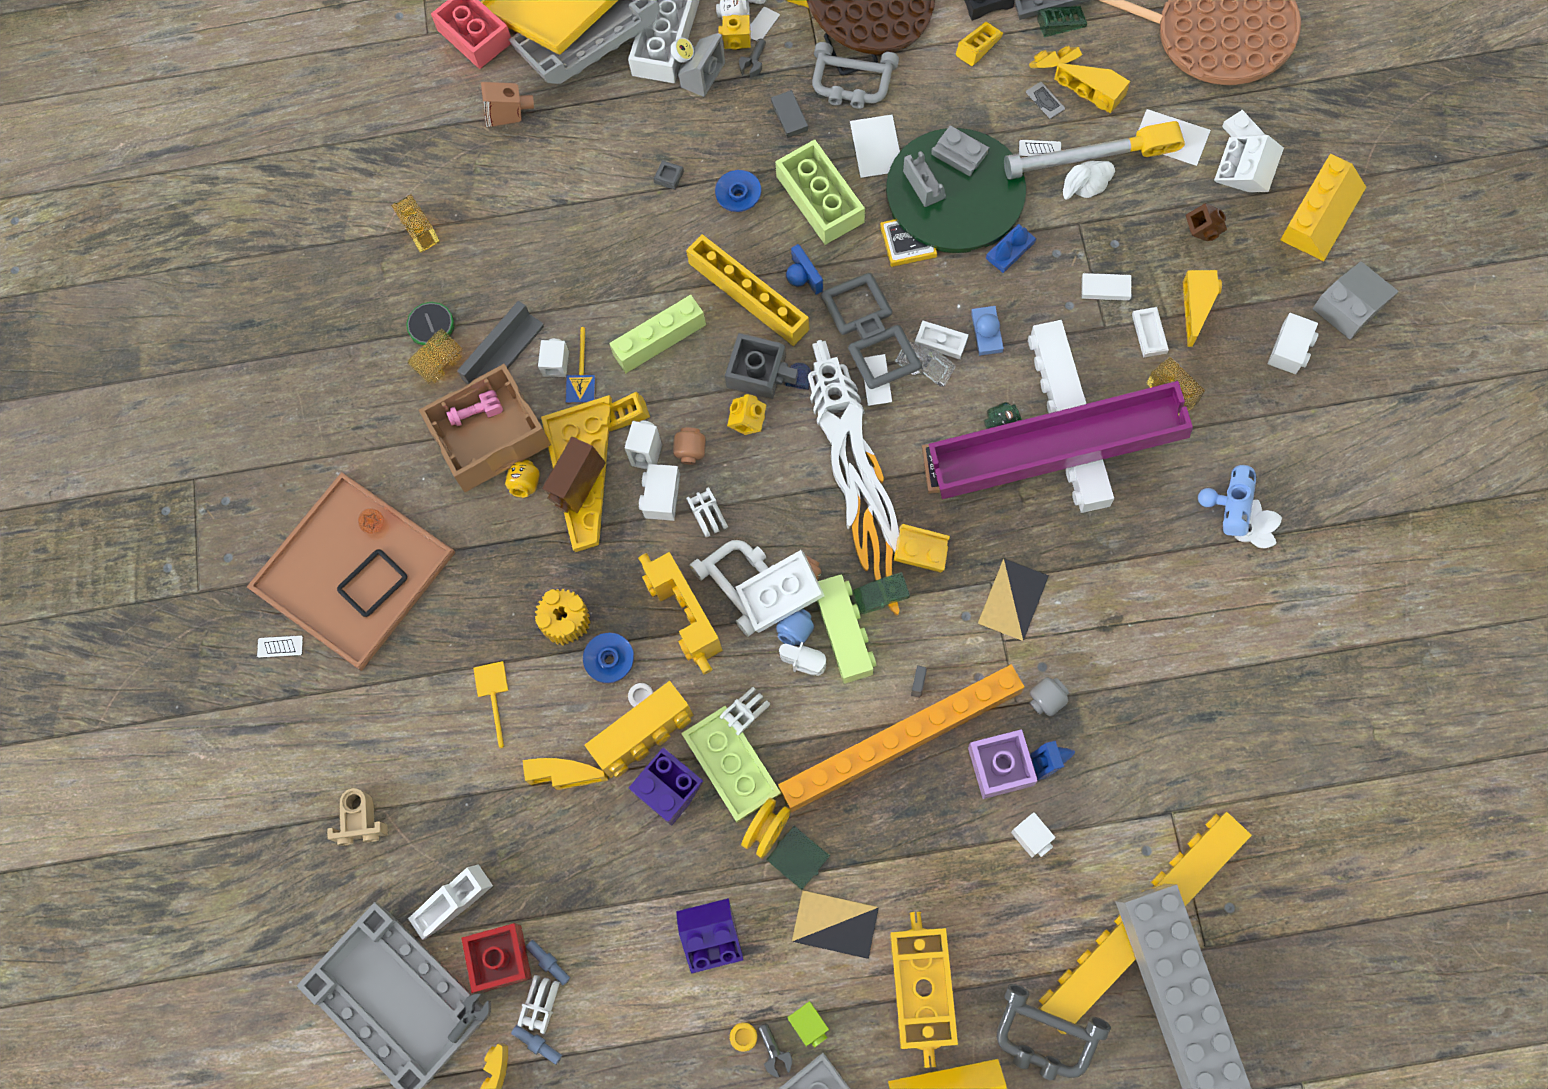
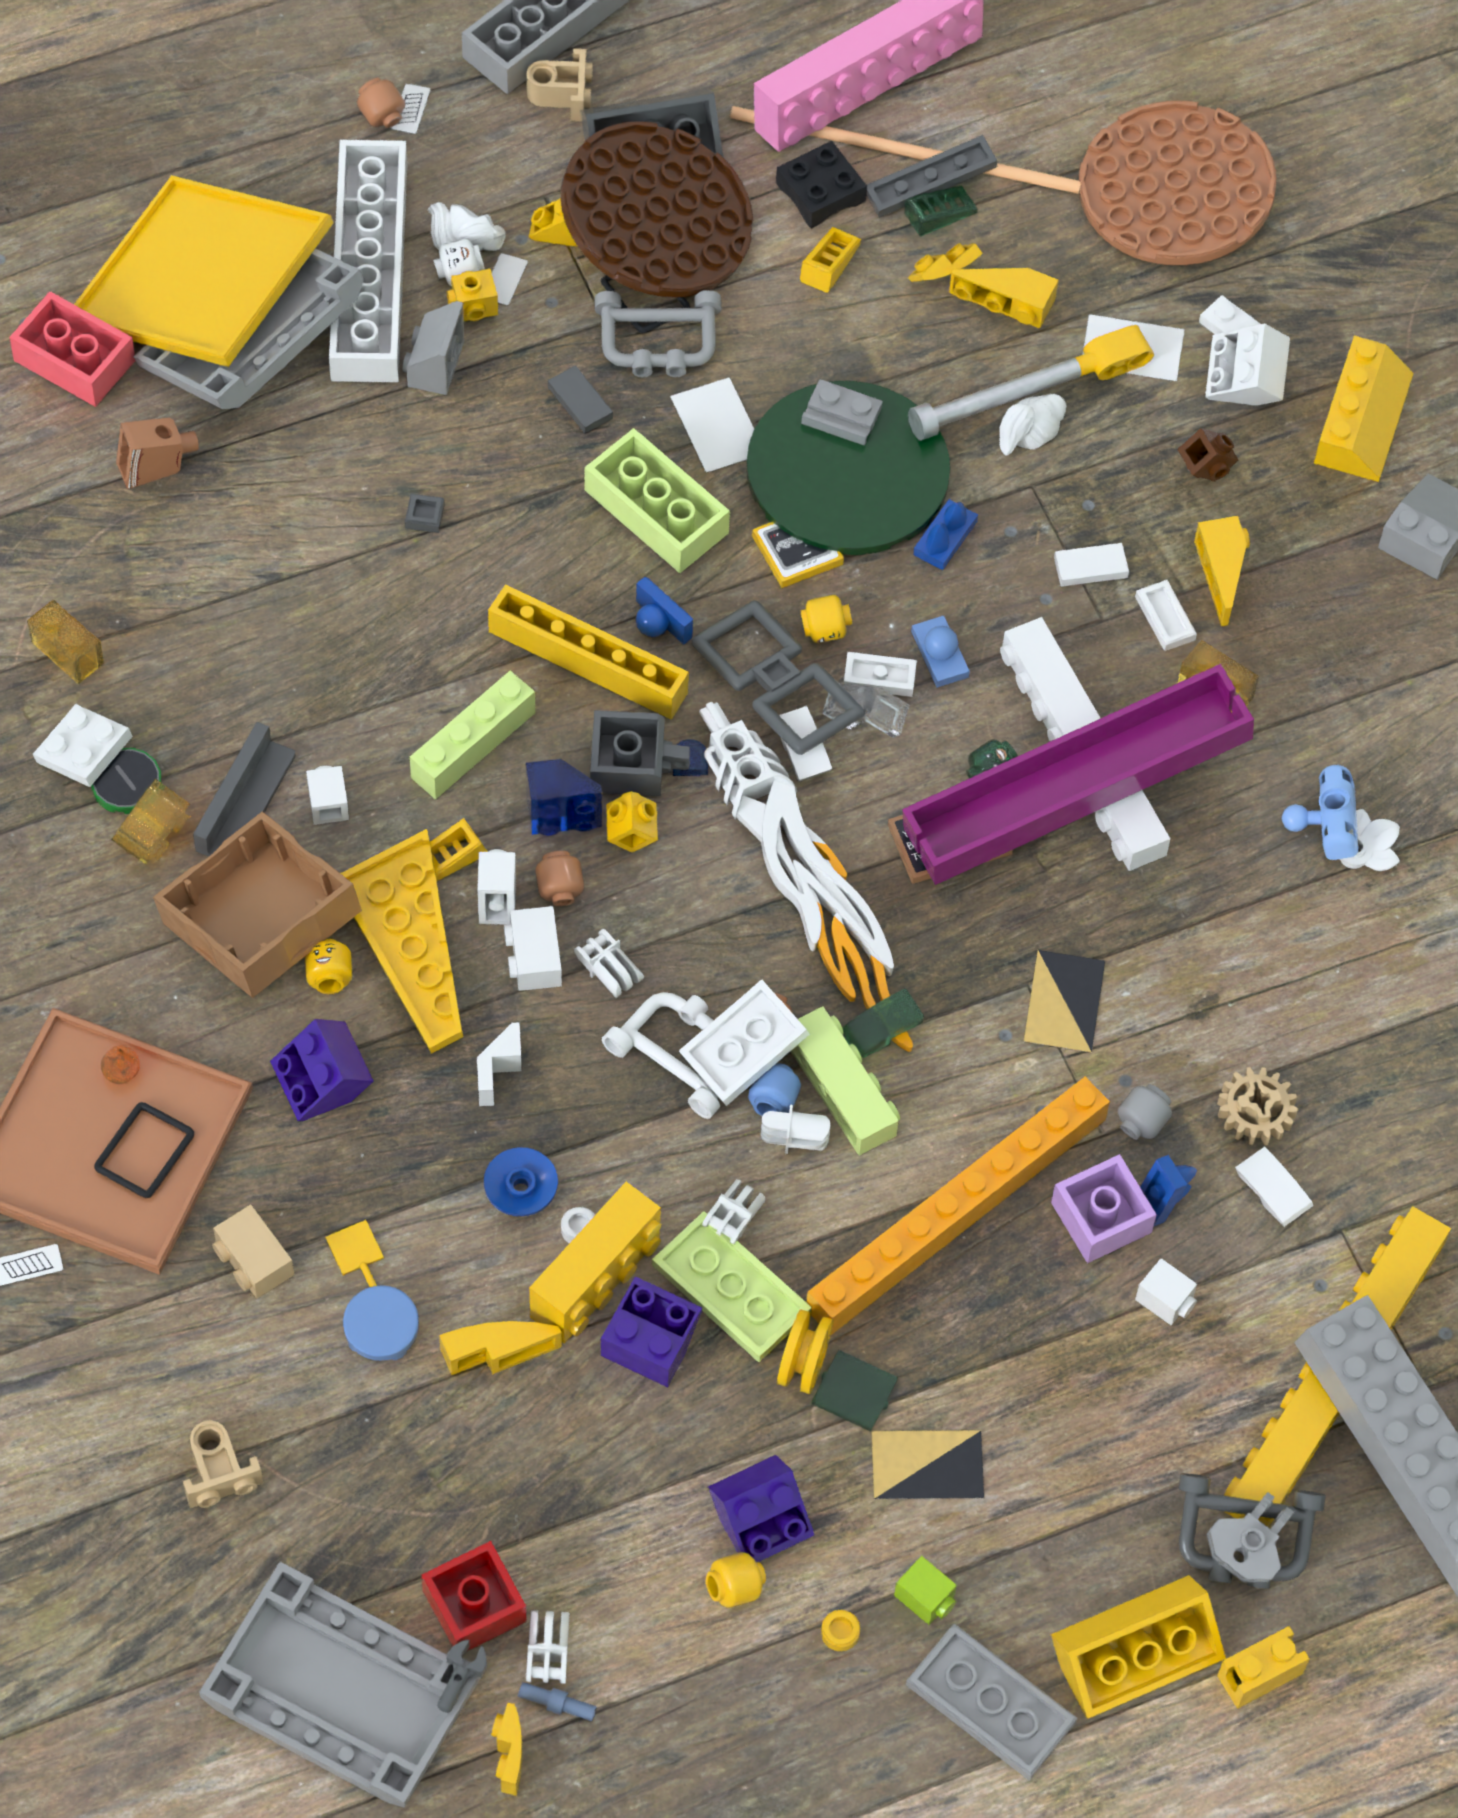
camera: 25 degrees left, 10 degrees down
(408, 295) = (82, 745): none -> white plate
(420, 670) = (252, 1251): none -> tan brick
(450, 901) = (382, 1545): white slope -> none
(489, 404) = (247, 872): bright pink hinge -> none
(490, 739) = (381, 1323): none -> medium blue tile
(499, 549) = (321, 1069): none -> dark purple slope
(548, 962) = (544, 1595): sand blue bar -> none
(556, 604) = (443, 1122): yellow brick -> none
(573, 475) = (413, 941): reddish brown brick -> none
(580, 387) = (372, 830): piece -> none
(619, 563) = (499, 1056): none -> white slope
(678, 984) = (735, 1580): none -> yellow head
(682, 50) = (406, 332): tile -> none
(699, 638) = (647, 1120): yellow brick -> none
(701, 390) = (561, 798): none -> clear blue slope
(738, 182) = (539, 507): blue dish -> none
(753, 59) = (506, 331): dark grey bar -> none
(773, 1051) = (888, 1641): dark grey bar -> none
(913, 294) = (826, 619): none -> yellow head
(918, 681) = (963, 1128): dark grey tile -> none
(921, 548) = (923, 955): yellow plate -> none
(923, 180) = (800, 461): light grey hinge -> none
(927, 1020) = (1080, 1546): yellow brick -> none
(1033, 147) = (947, 391): white sticker -> none
(1045, 100) = (943, 323): sticker -> none
(1048, 1049) = (1252, 1540): none -> light grey hinge
(1129, 771) = (1274, 1186): none -> white slope
(1142, 707) = (1266, 1095): none -> tan gear
(1293, 343) = (1362, 597): white brick -> none

